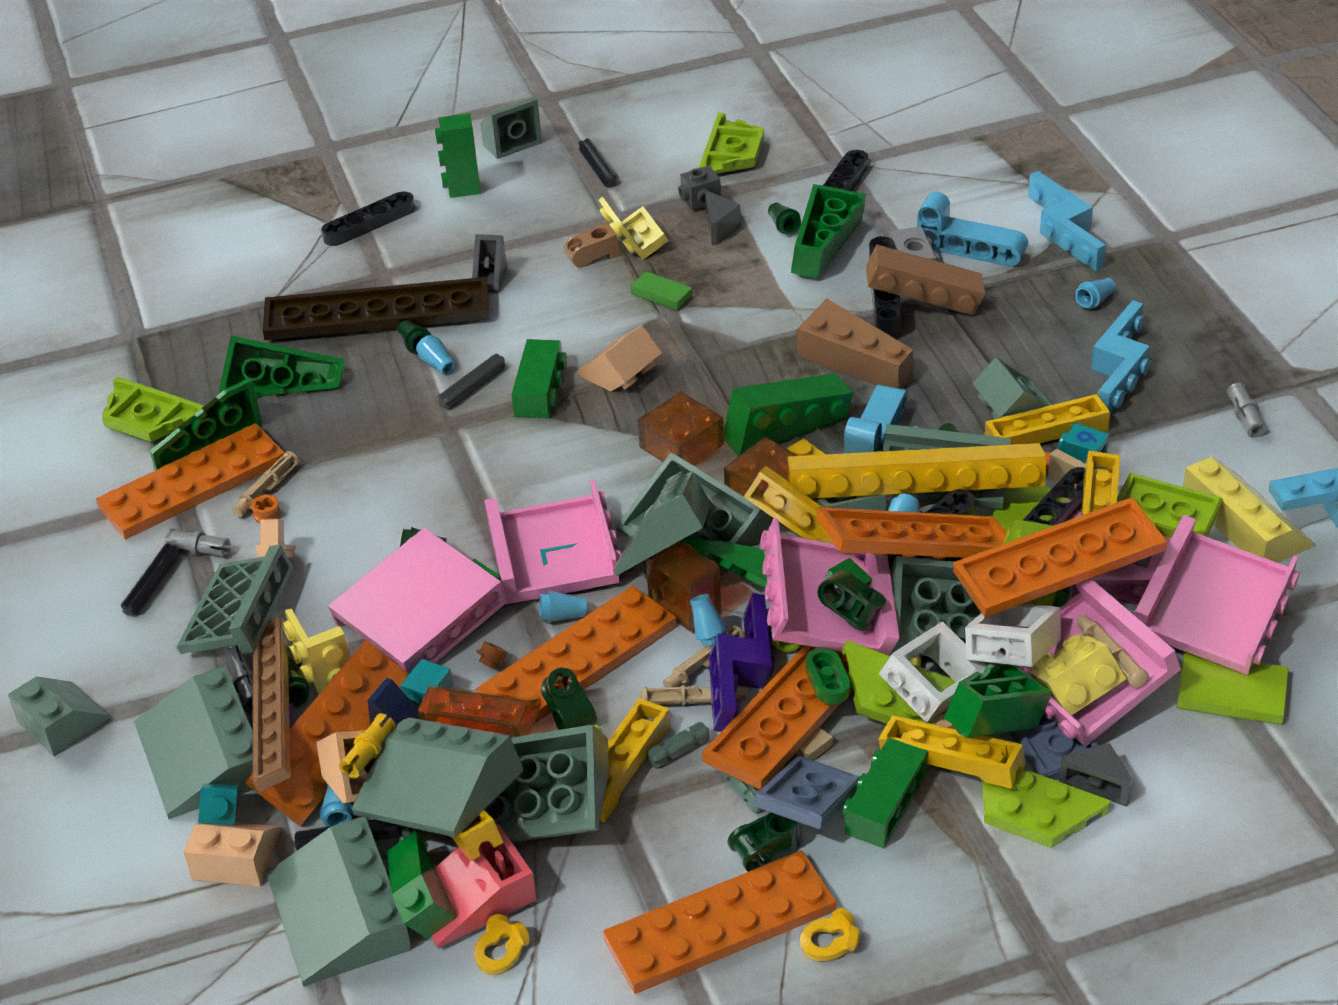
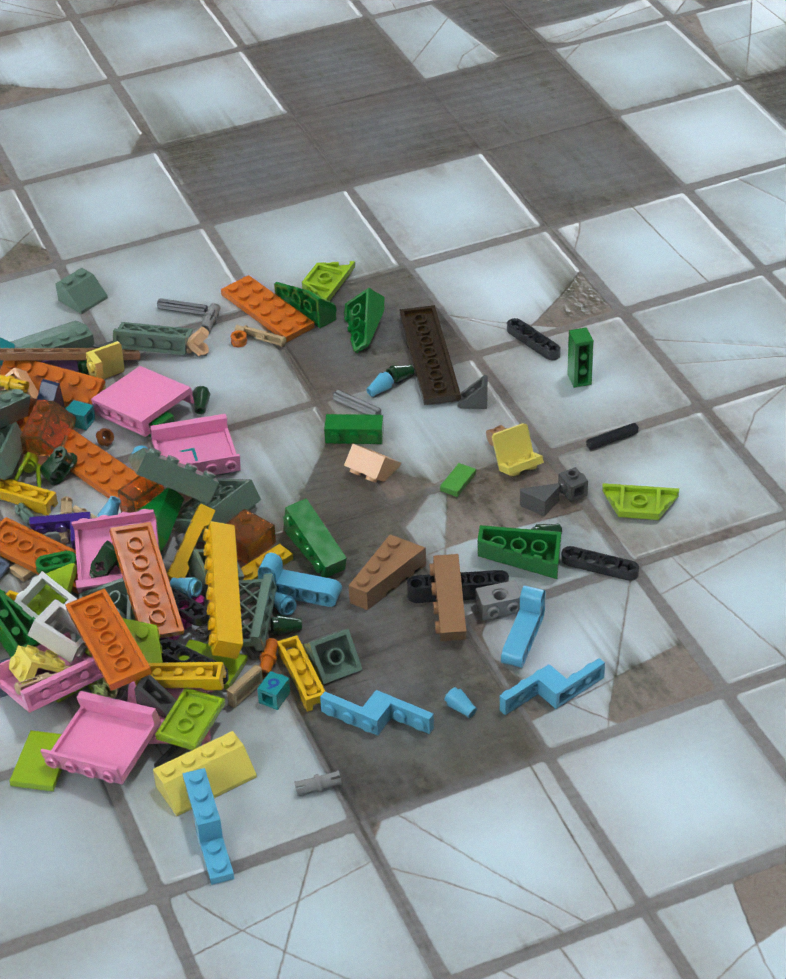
camera: 85 degrees right, 0 degrees up
(512, 128) = (637, 386): sand green slope -> none
(681, 428) = (293, 488): clear orange brick -> none

